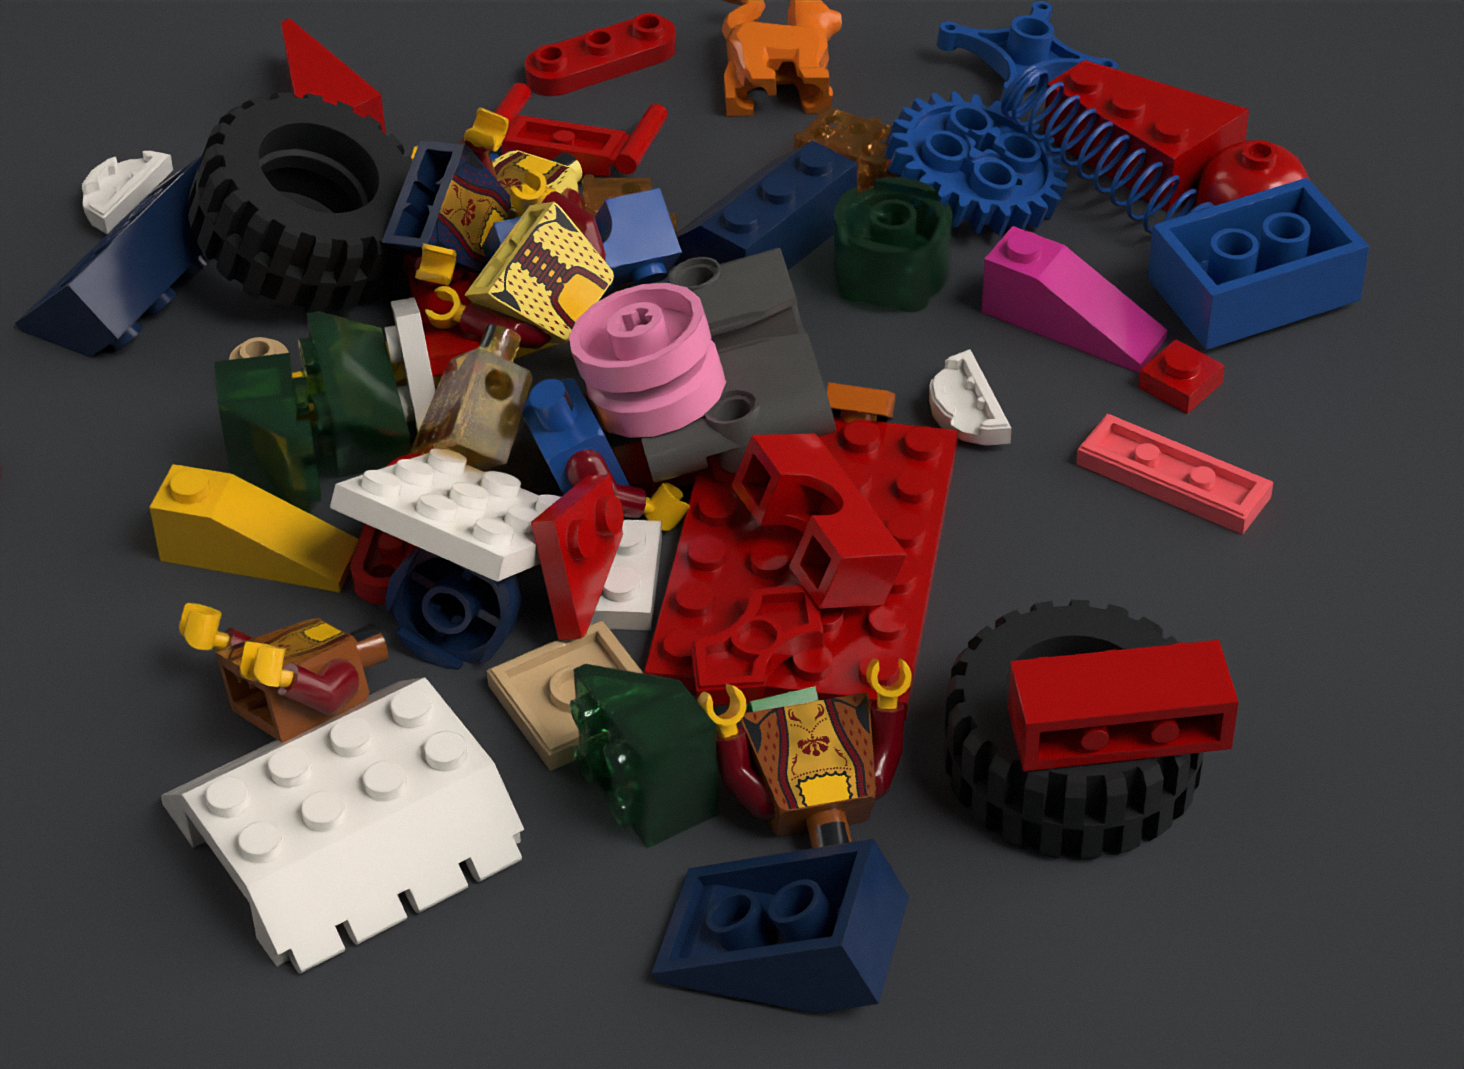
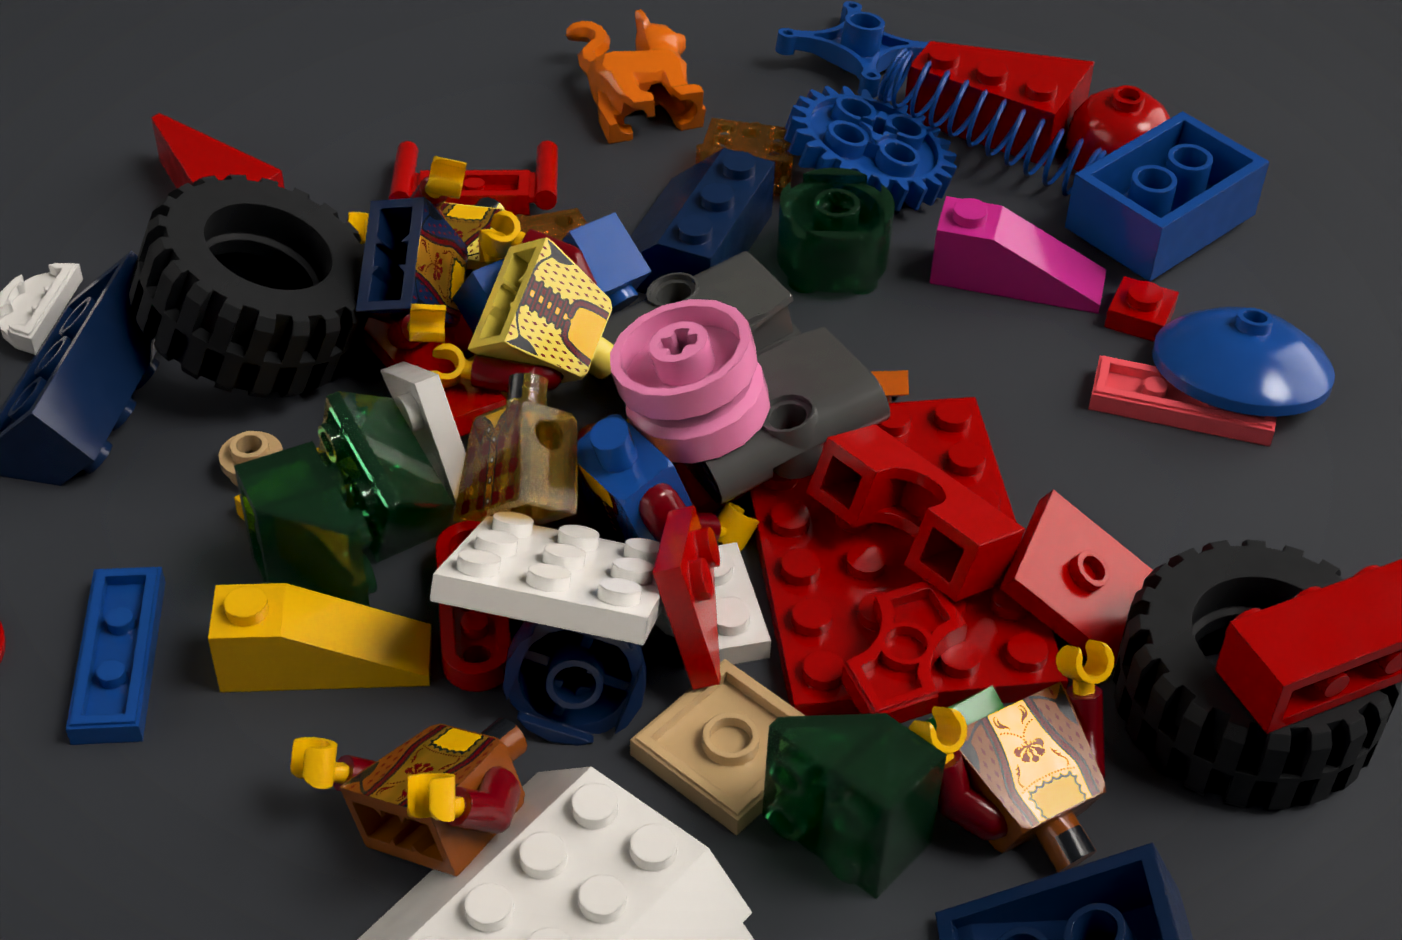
camera: 20 degrees left, 0 degrees up
(84, 511) = (116, 656): none -> blue tile
(600, 55) = (468, 106): red plate -> none
(946, 603) = (1074, 575): none -> plate
(965, 402) = (969, 370): white plate -> none
(1250, 446) = (1244, 362): none -> blue dish

